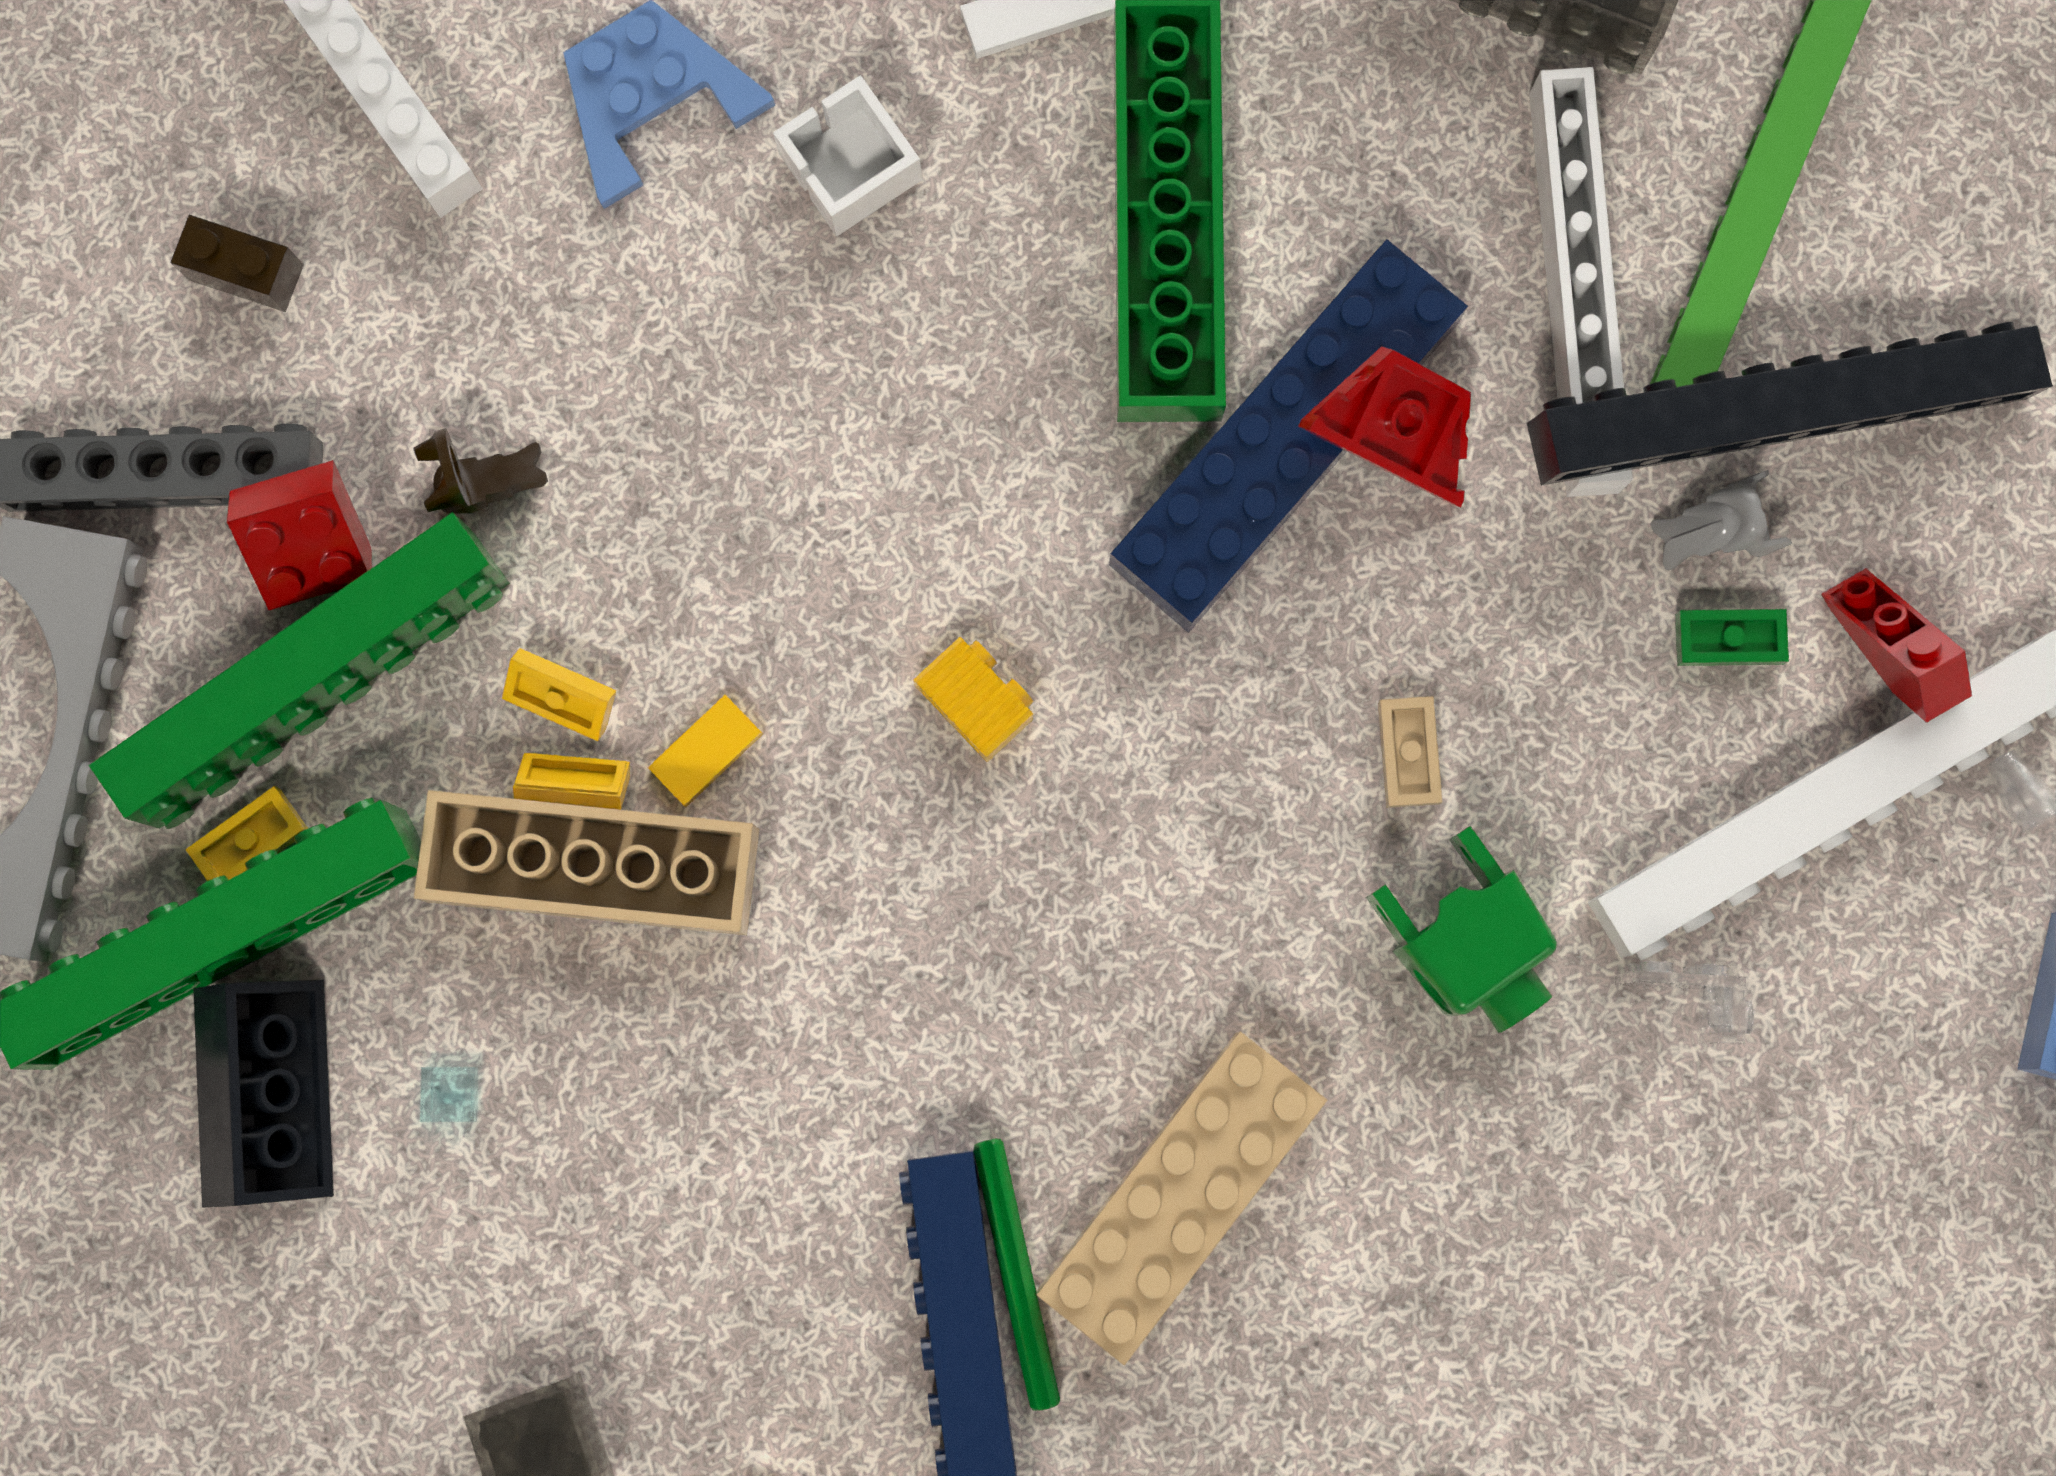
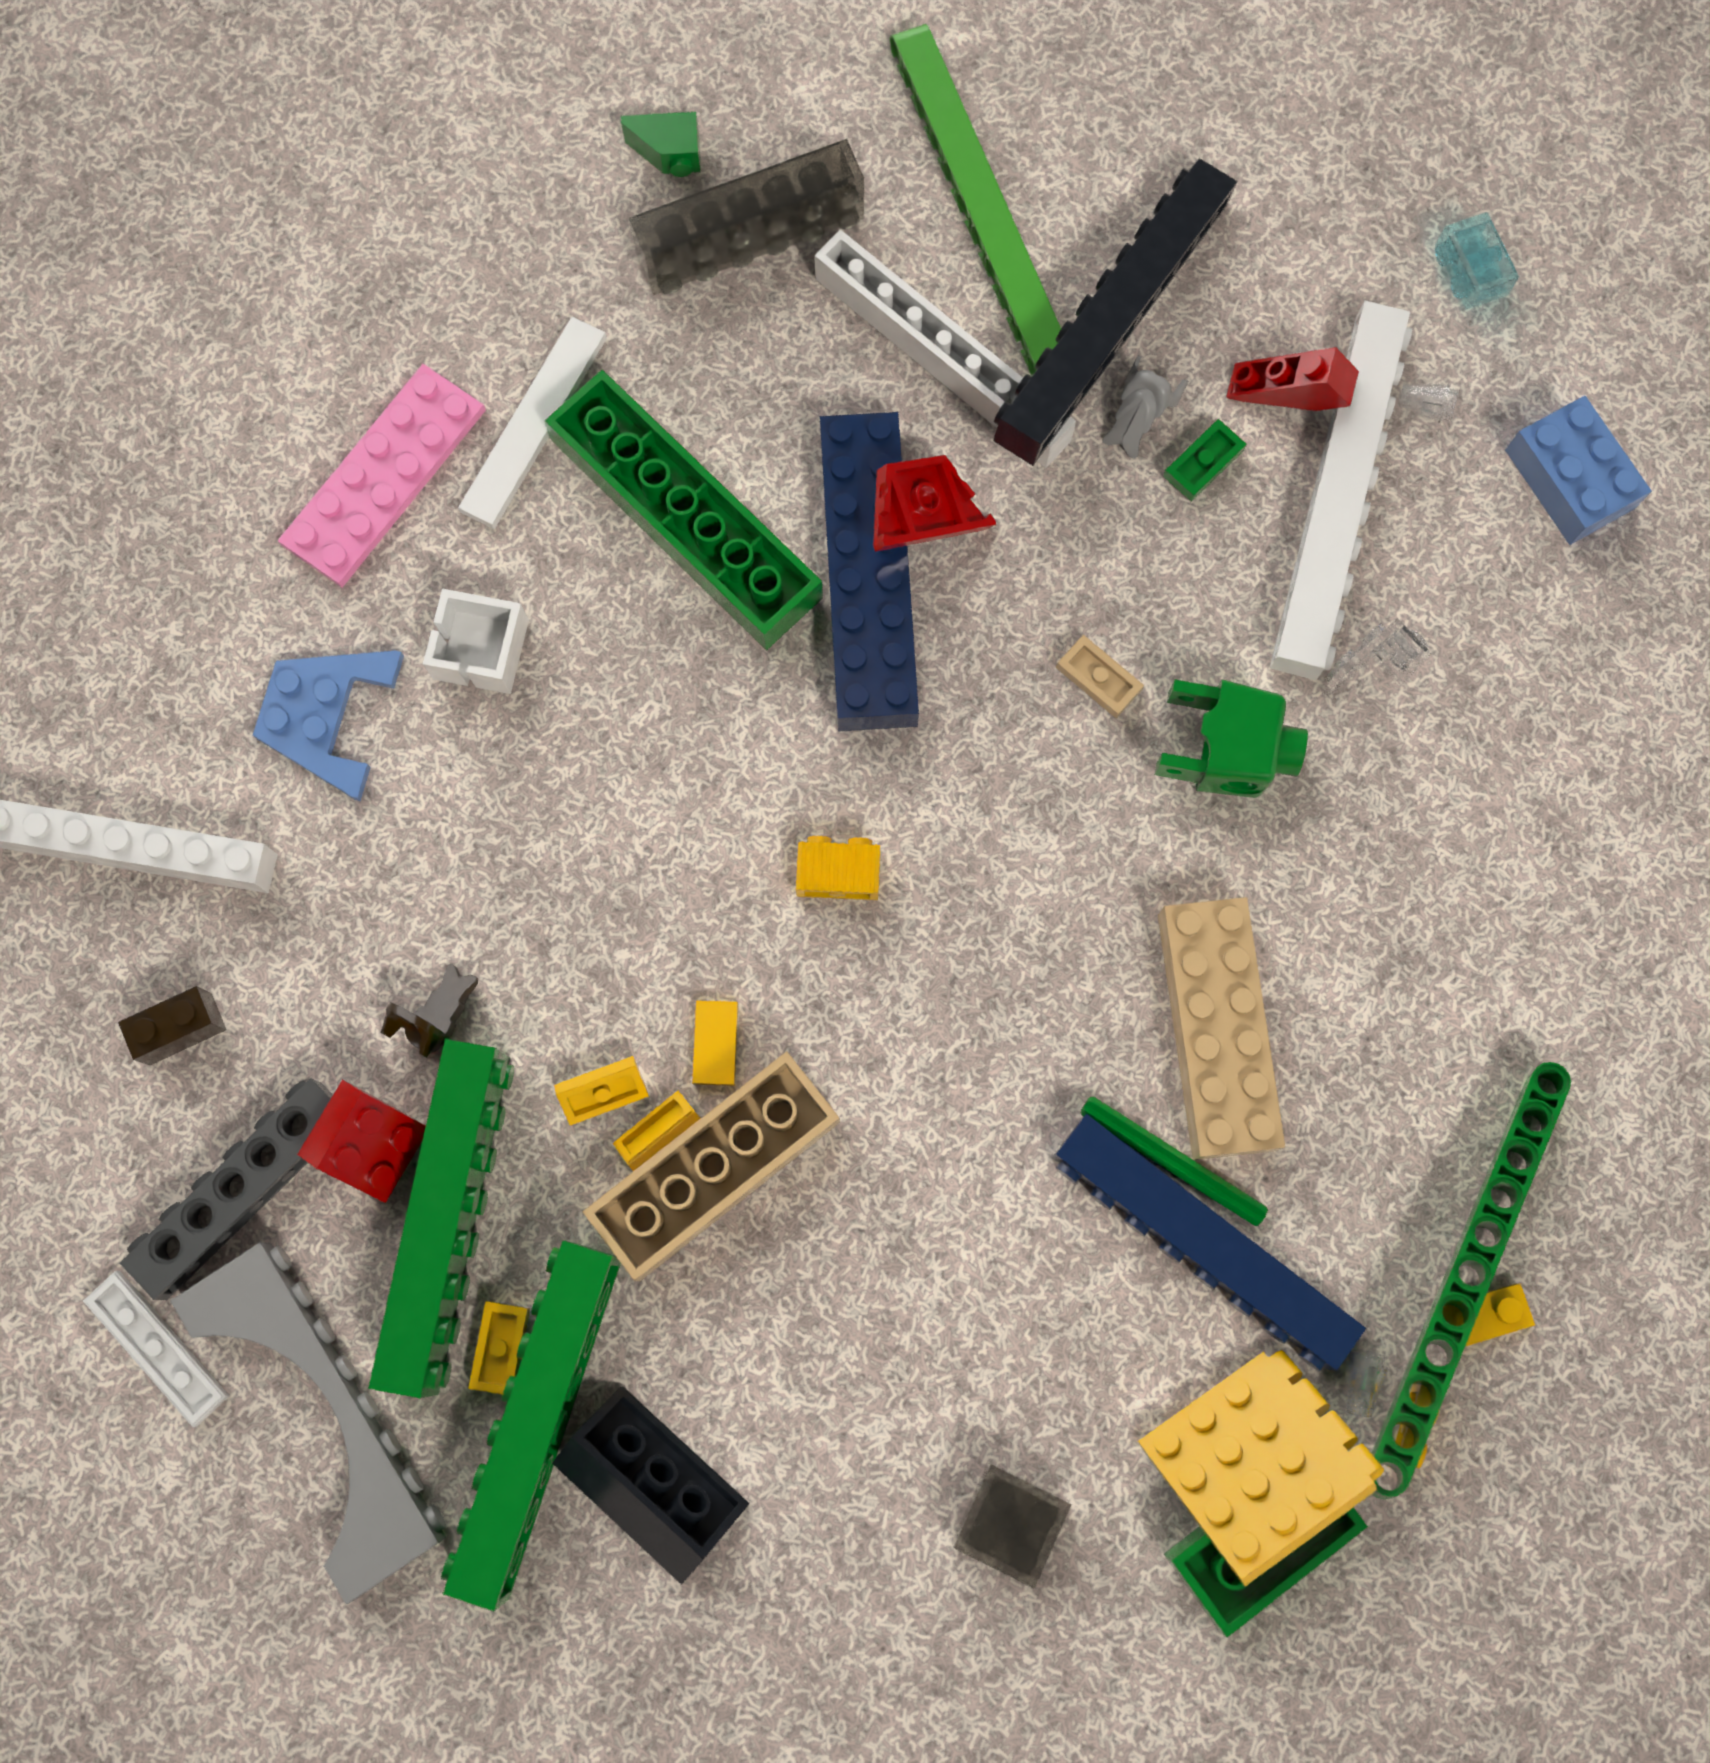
camera: 45 degrees left, 5 degrees down
(449, 1094) = (759, 1378): clear light blue tile -> none

